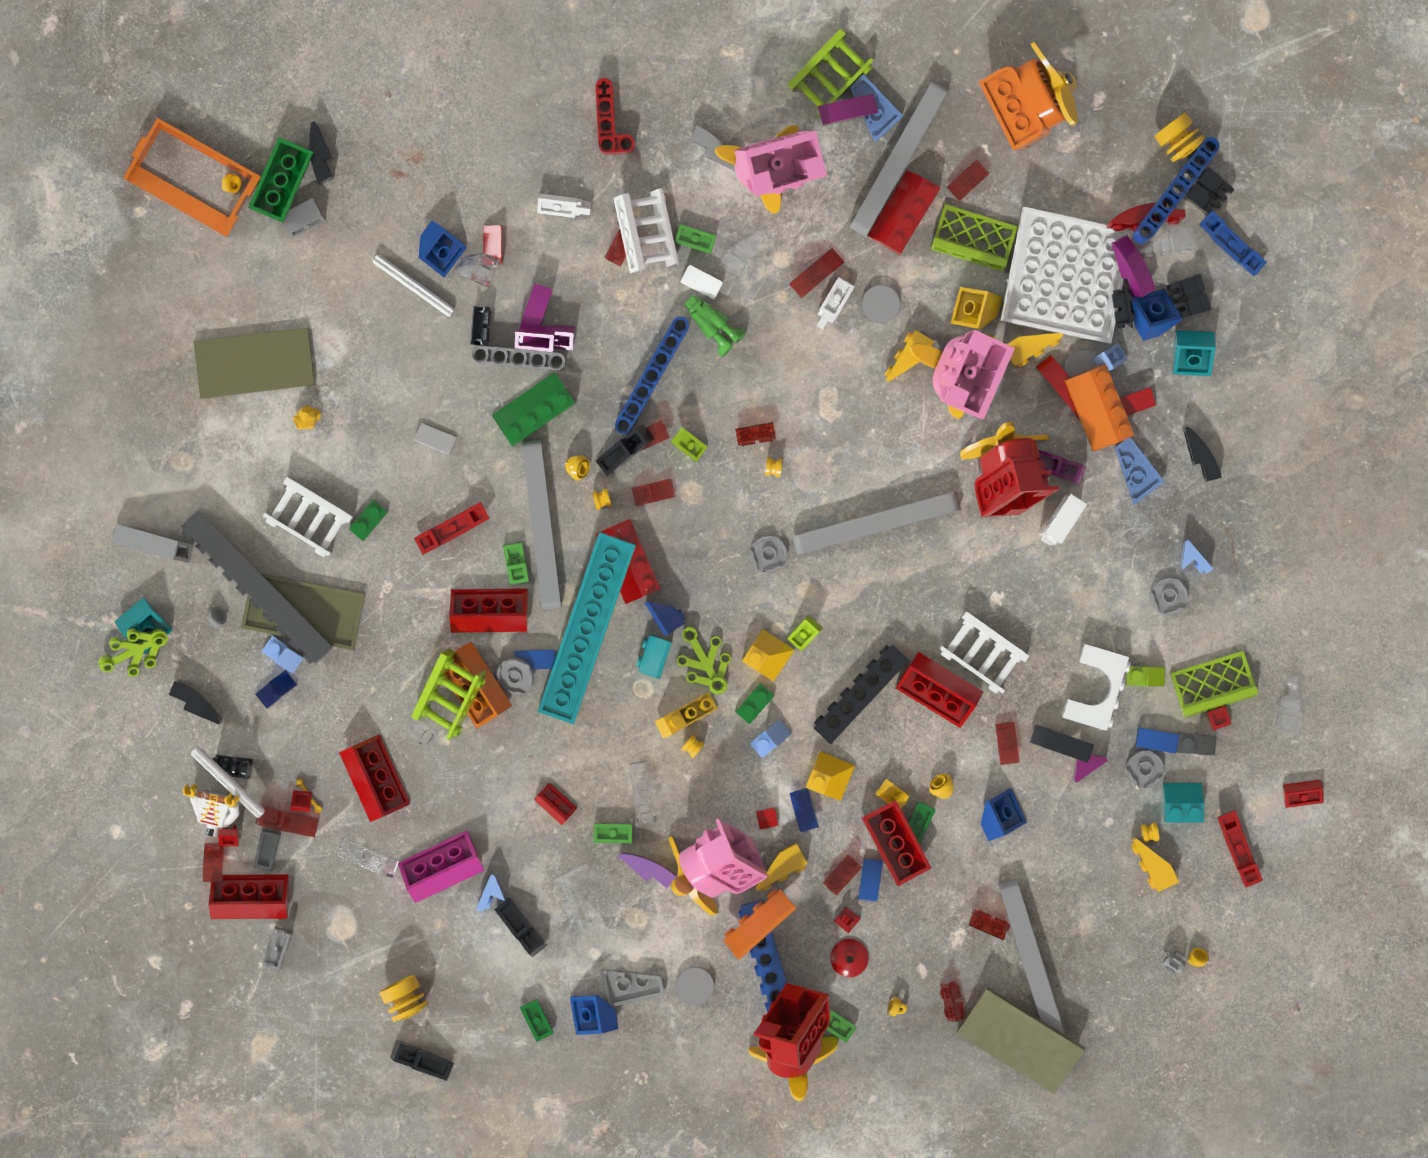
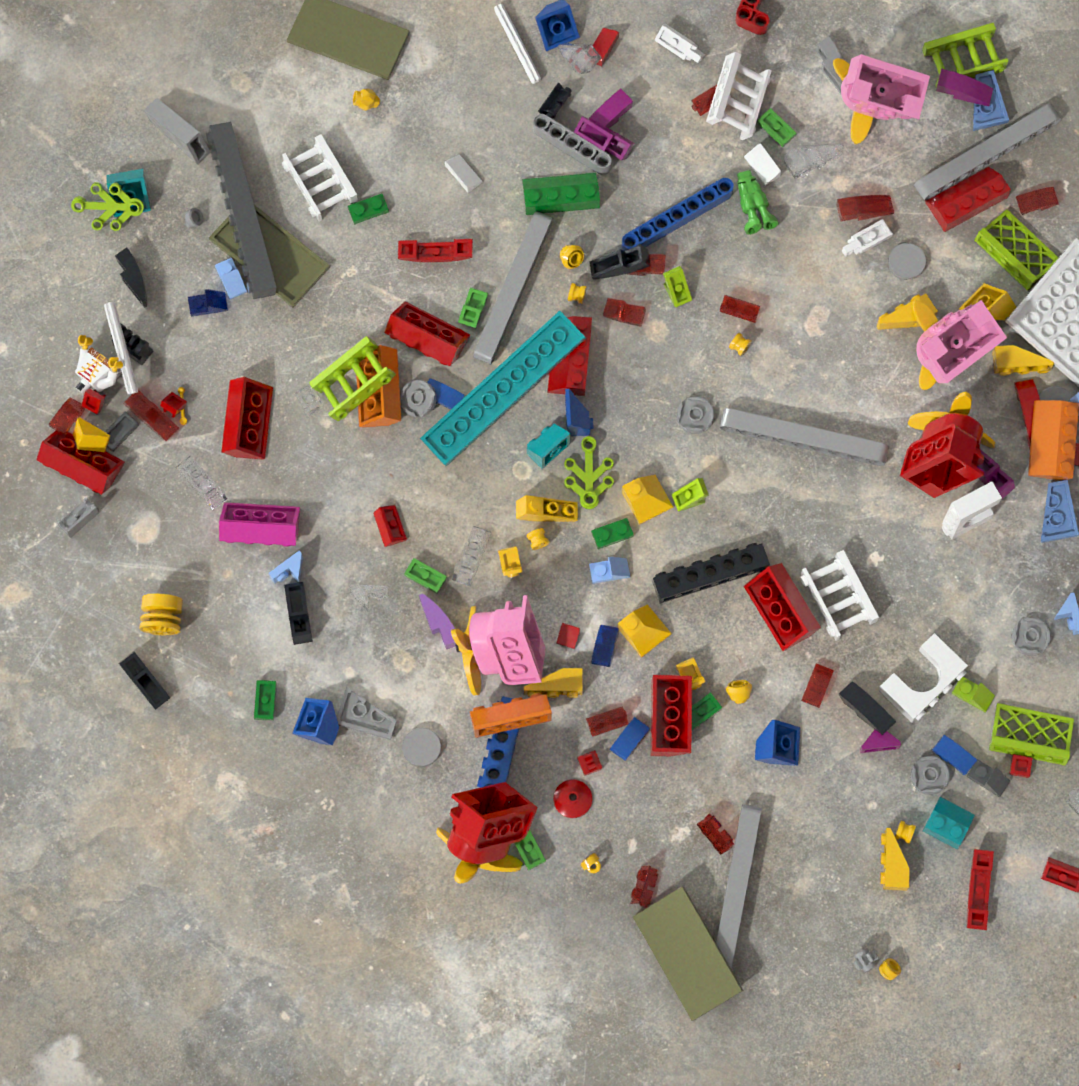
camera: 30 degrees right, 15 degrees down
(245, 872) = (90, 437): none -> yellow slope
(680, 780) = (510, 561): none -> yellow bracket

